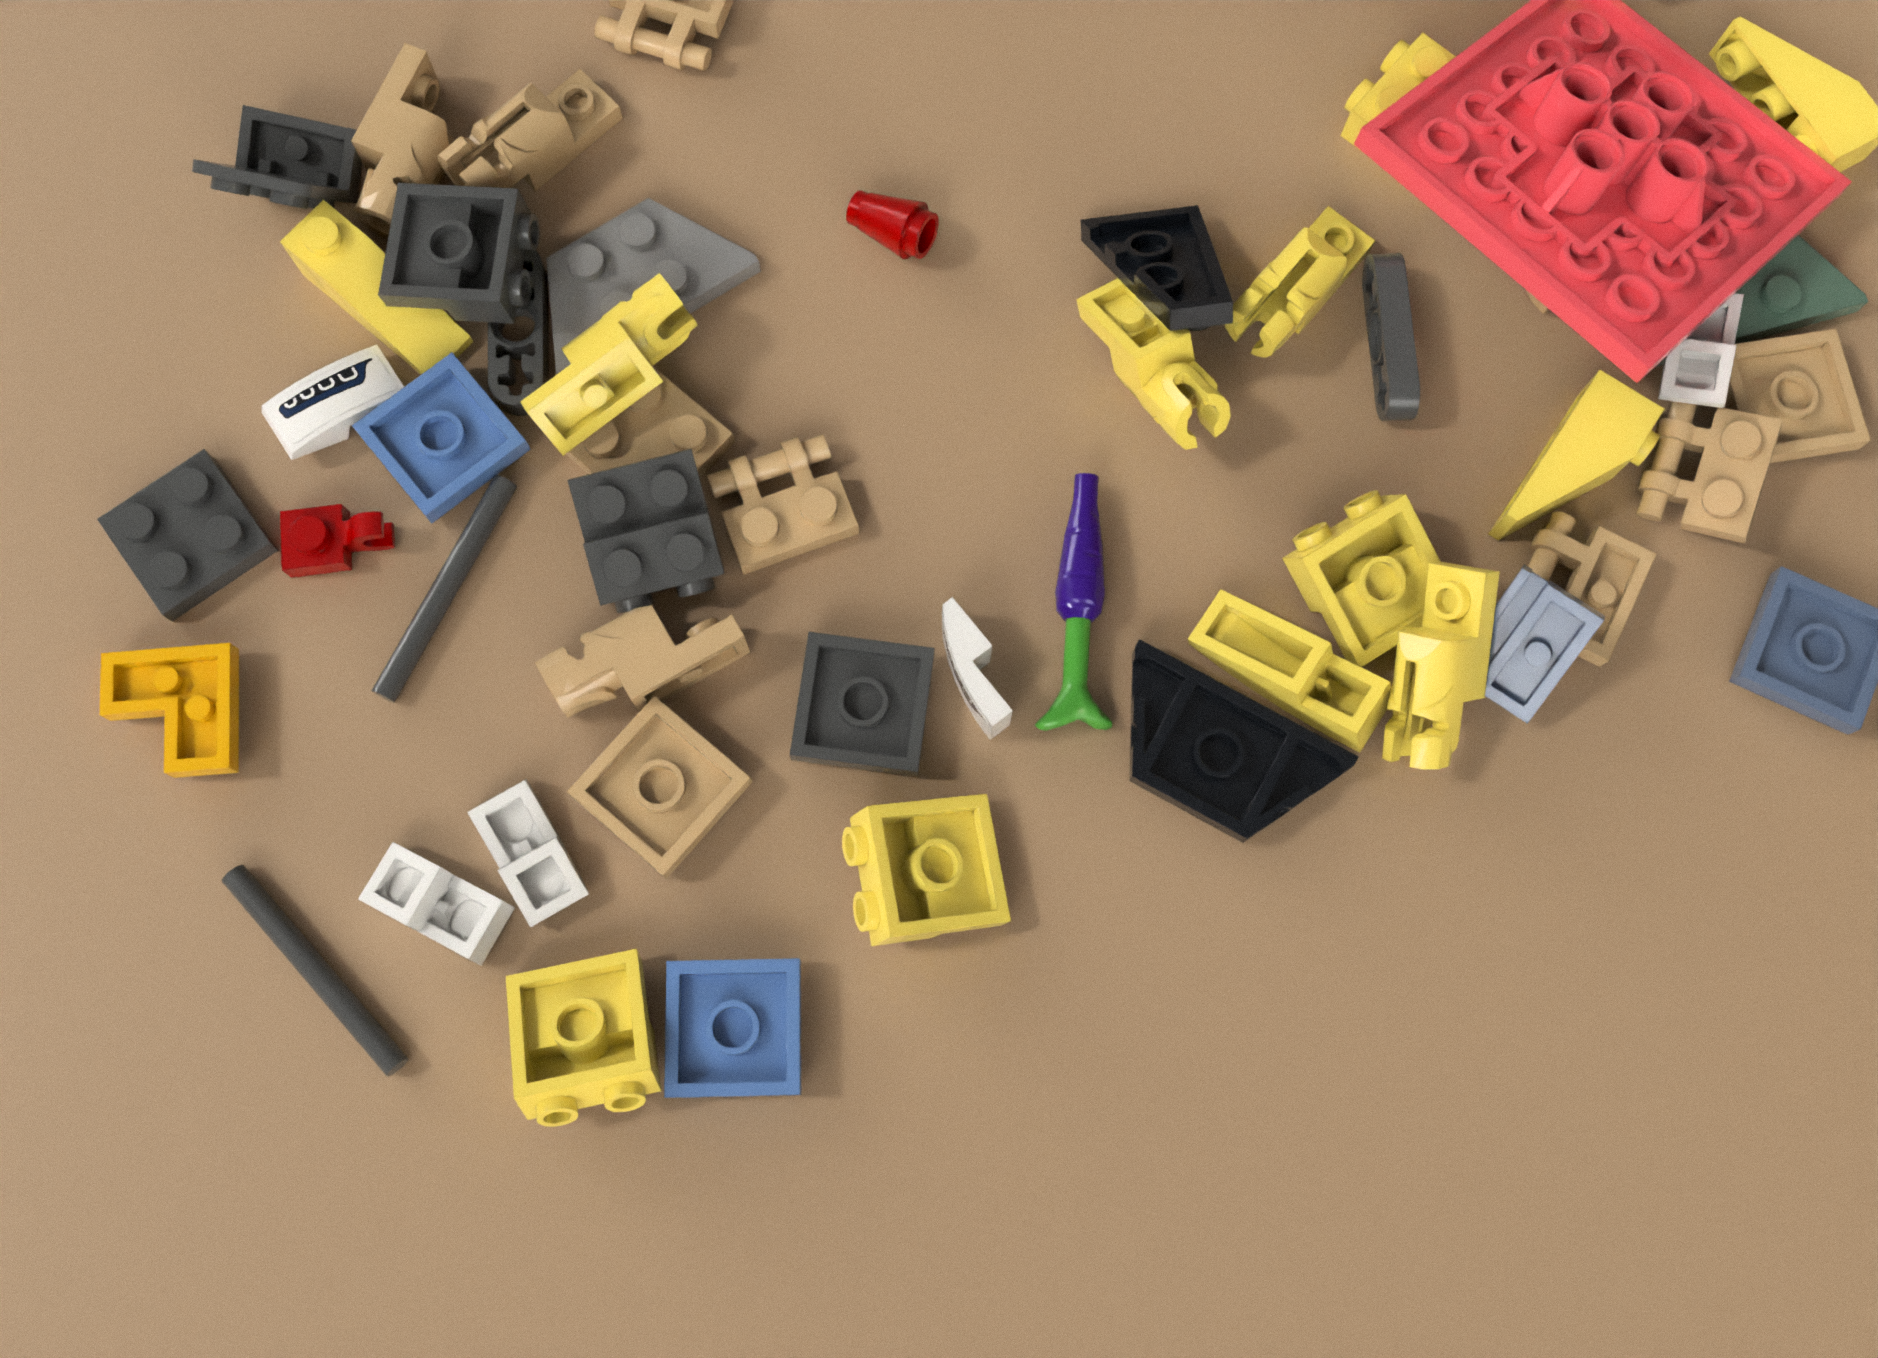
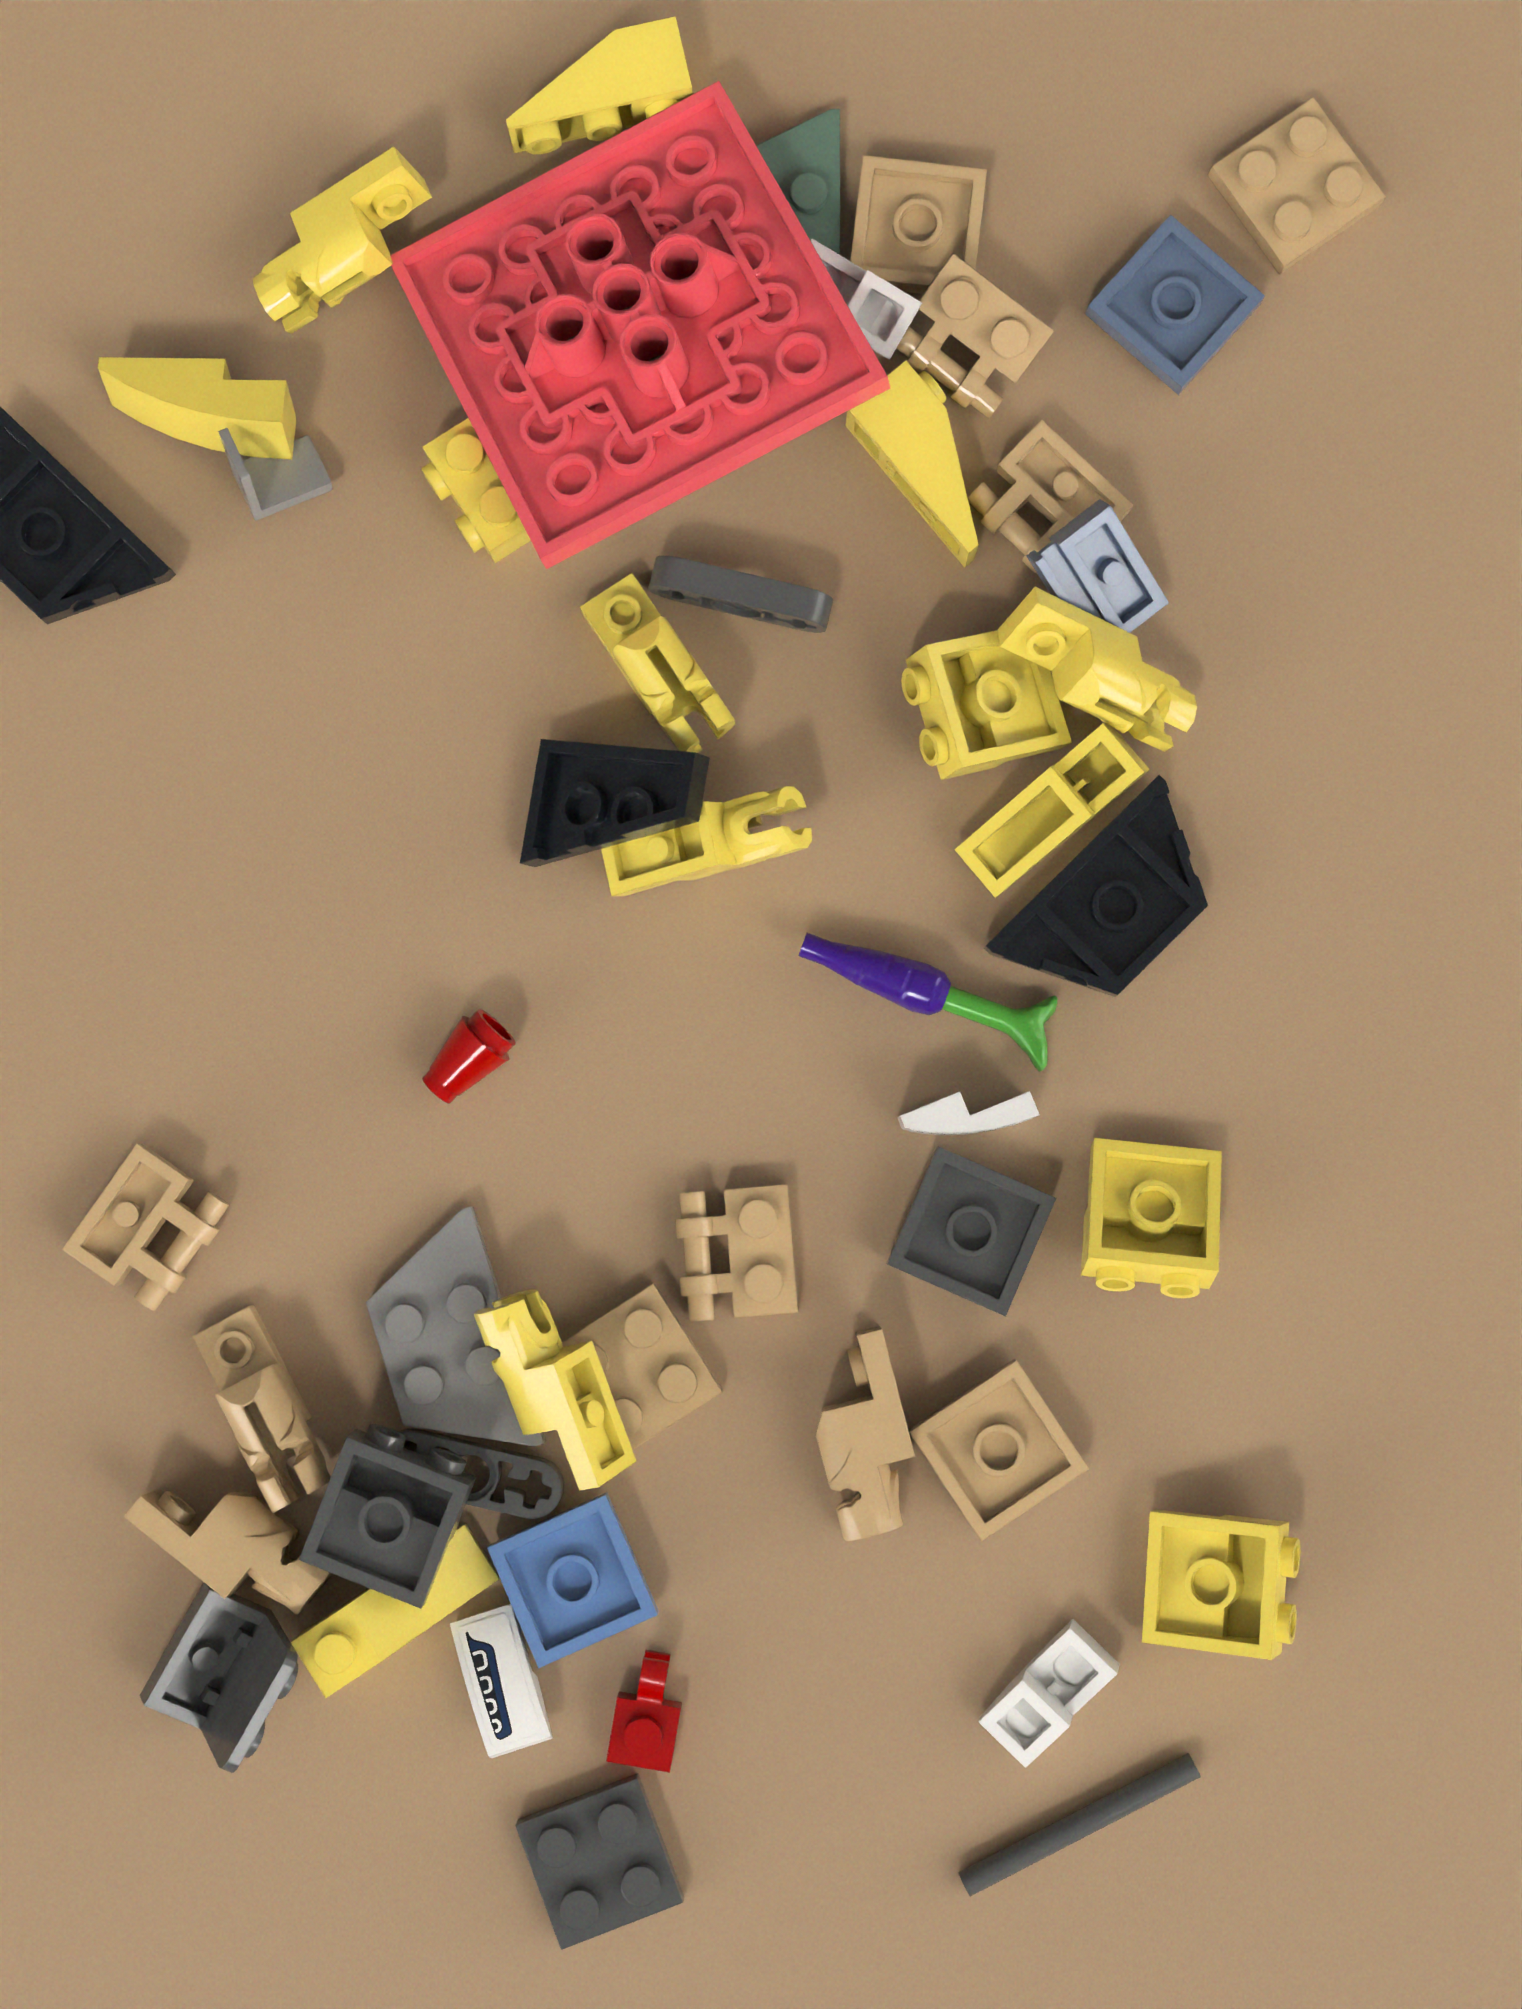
camera: 65 degrees left, 10 degrees up
(192, 691) = (777, 1883): yellow plate -> none
(444, 589) = (731, 1613): dark grey bar -> none
(528, 853) = (1024, 1592): white slope -> none
(647, 530) = (739, 1396): dark grey plate -> none
(733, 1028) = (1248, 1439): medium blue plate -> none

